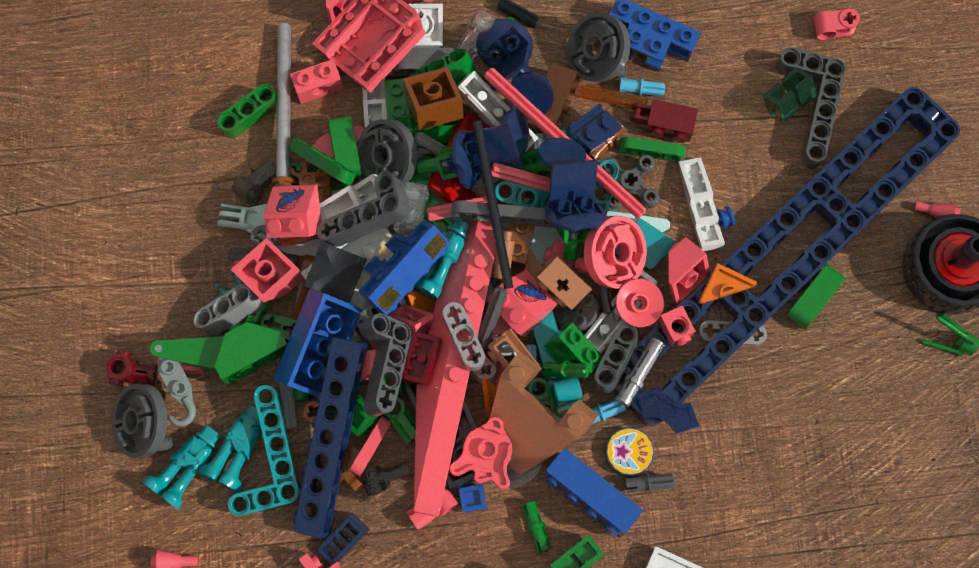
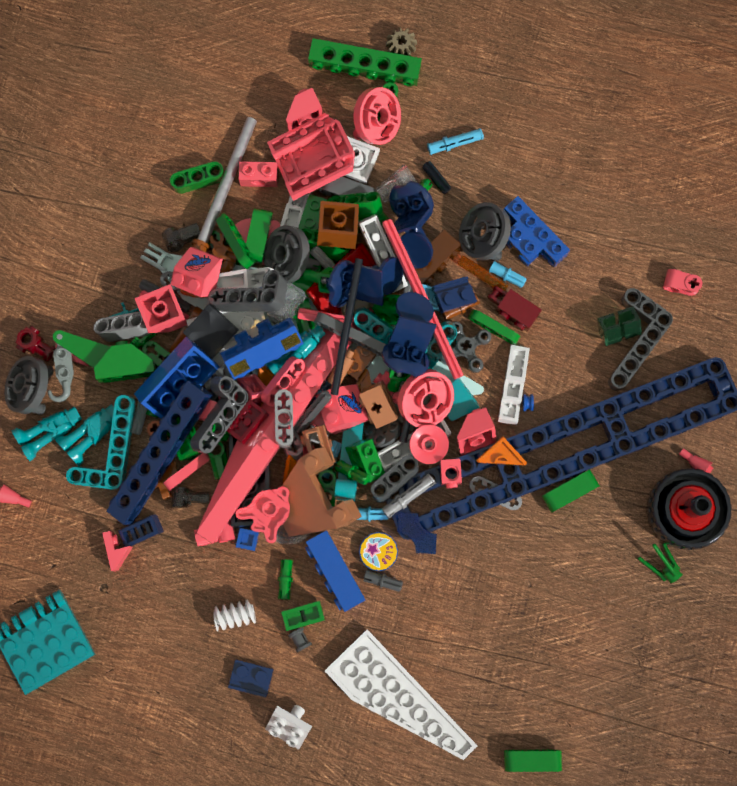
camera: 25 degrees right, 5 degrees up
(447, 279) = (288, 367): none -> coral beam
(520, 177) = (376, 311): coral axle -> none

